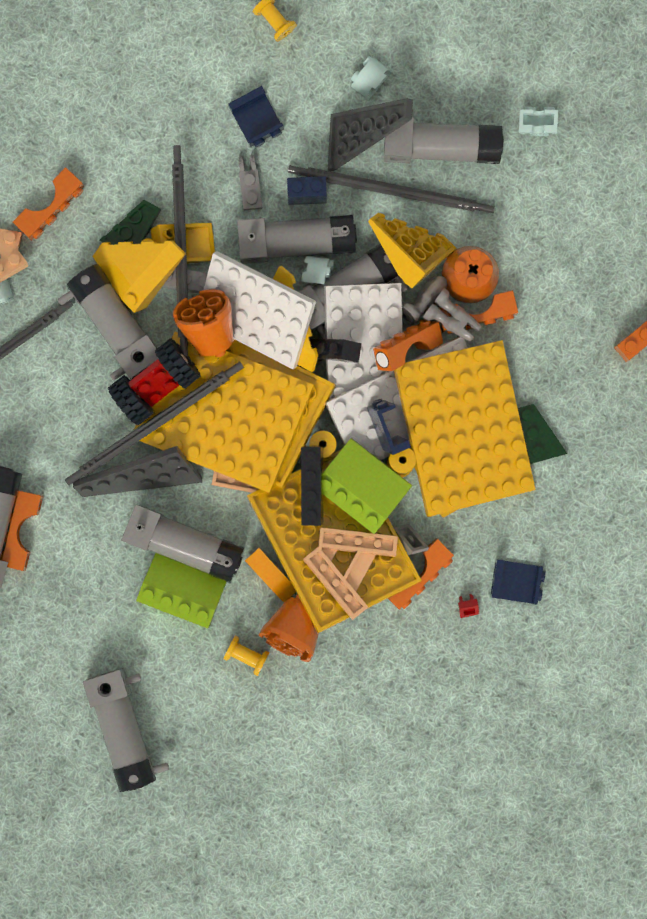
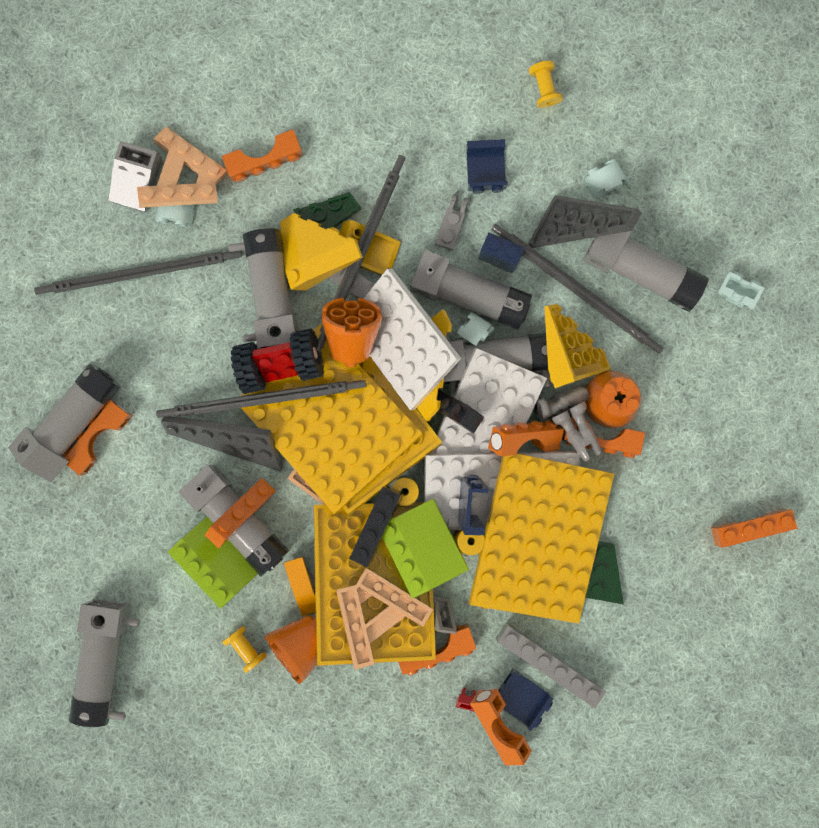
camera: 30 degrees right, 0 degrees up
(184, 533) = (239, 512): none -> orange arch
(525, 627) = (509, 745): none -> orange arch
(527, 538) = (550, 665): none -> light grey brick

